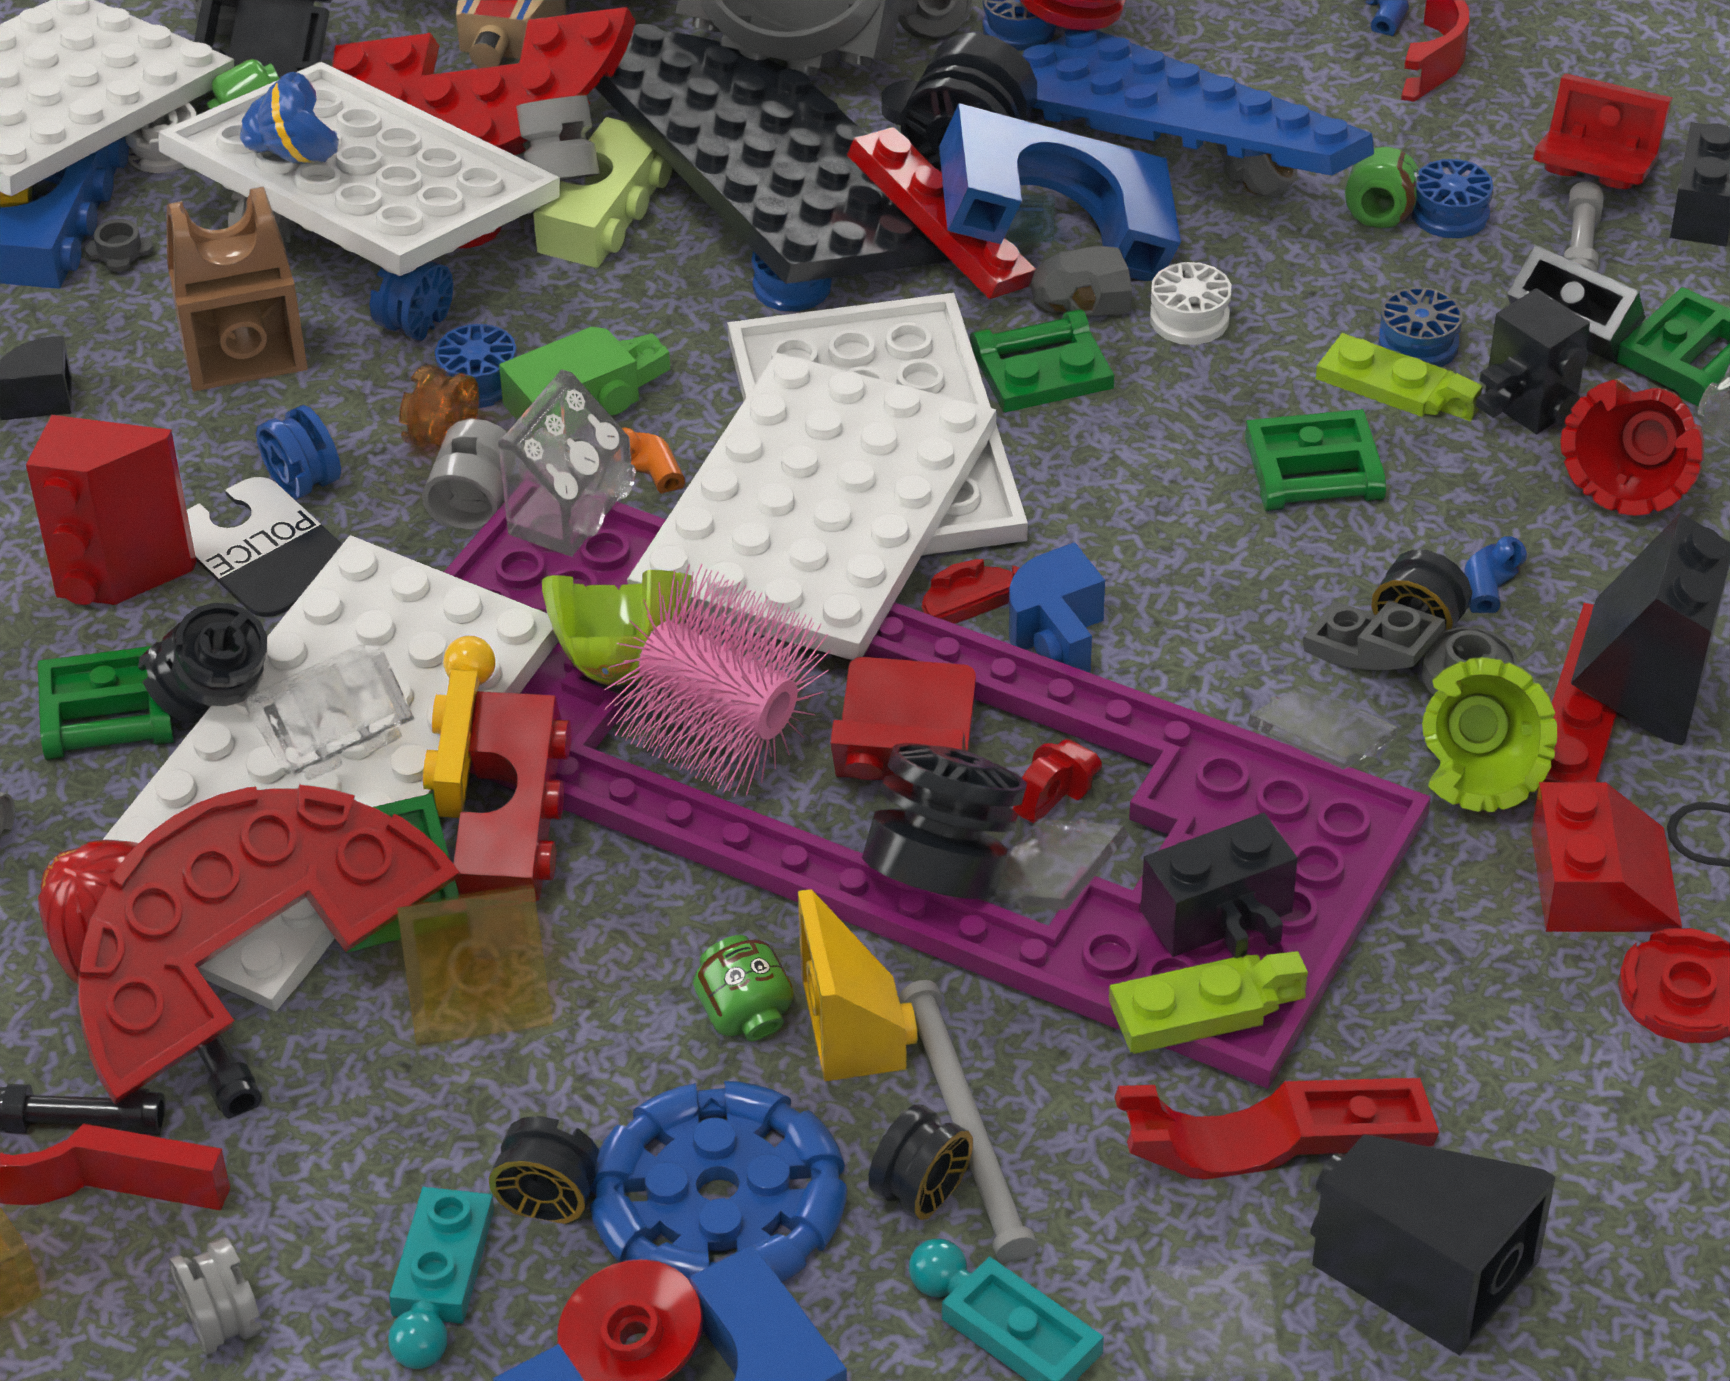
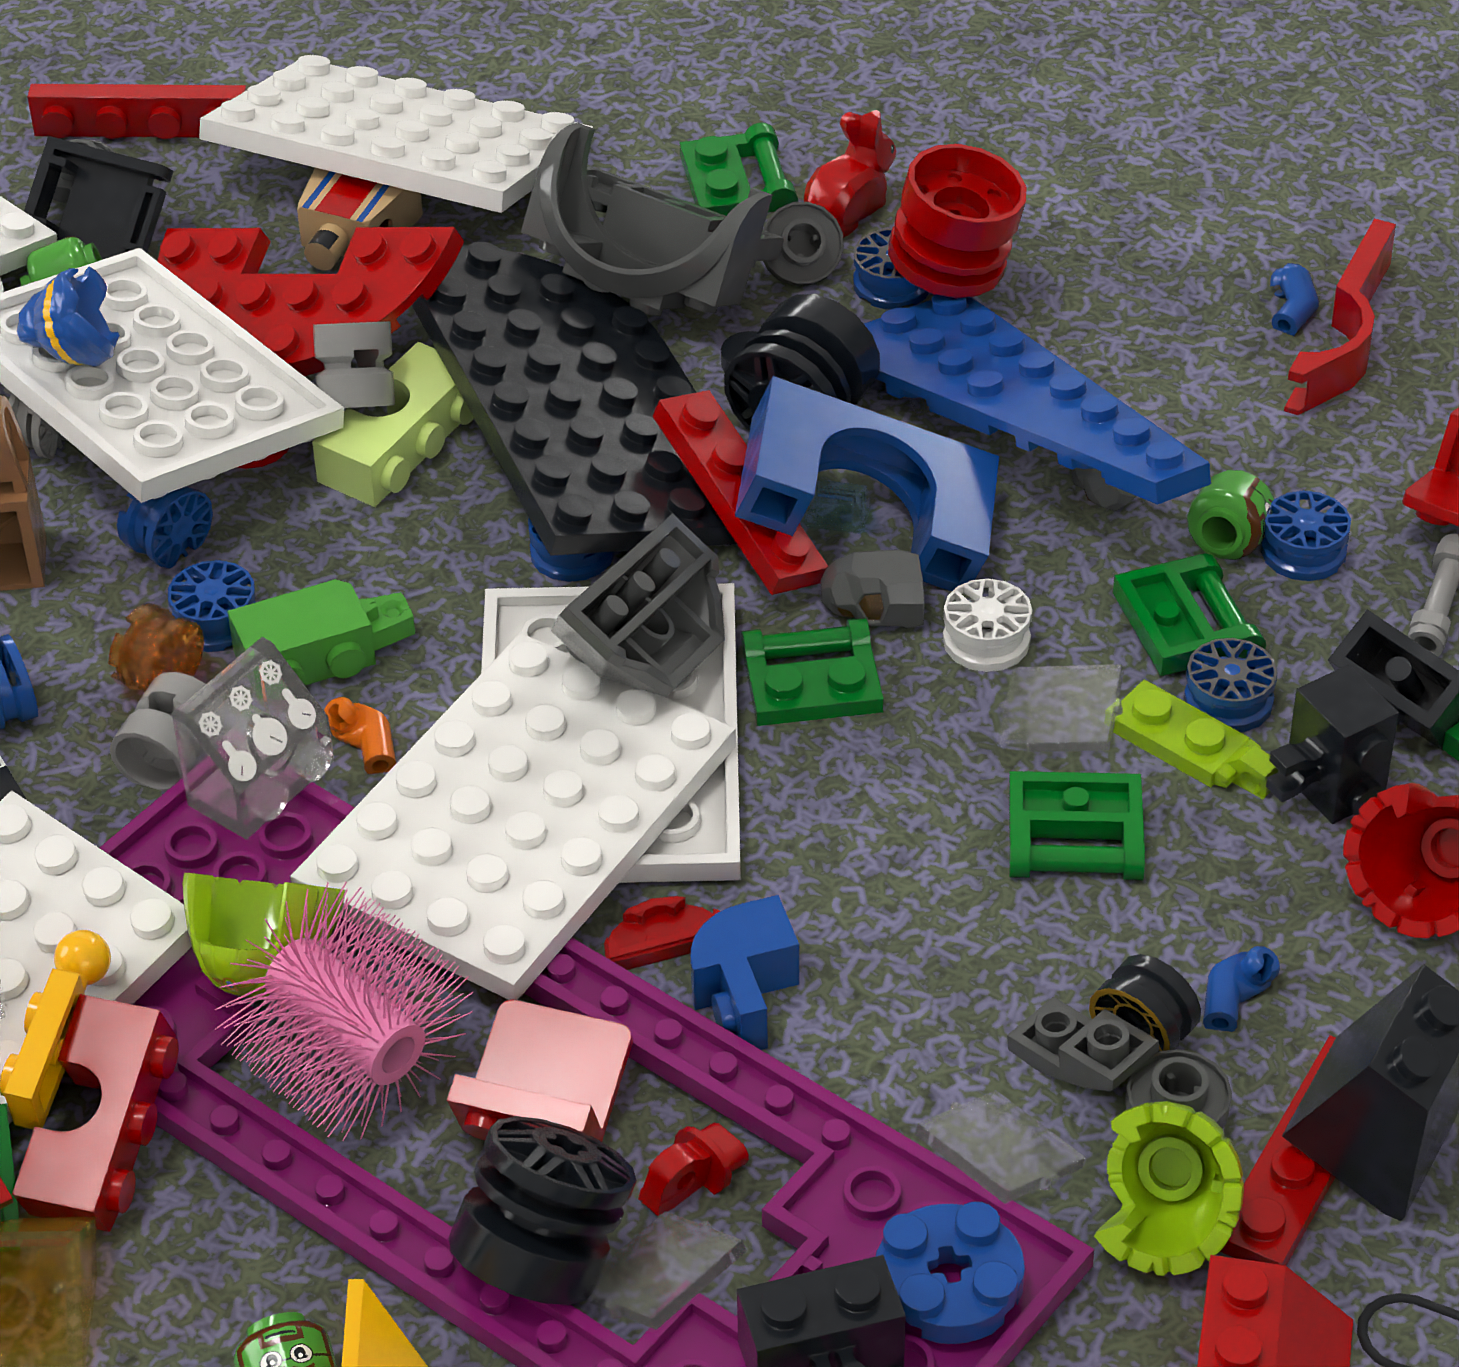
camera: 10 degrees right, 0 degrees up
(894, 320) = (649, 613): none -> dark grey wedge
(1274, 365) = (1061, 708): none -> clear piece
(1329, 801) = (960, 1236): none -> blue plate
(1349, 280) = (1169, 617): none -> green plate

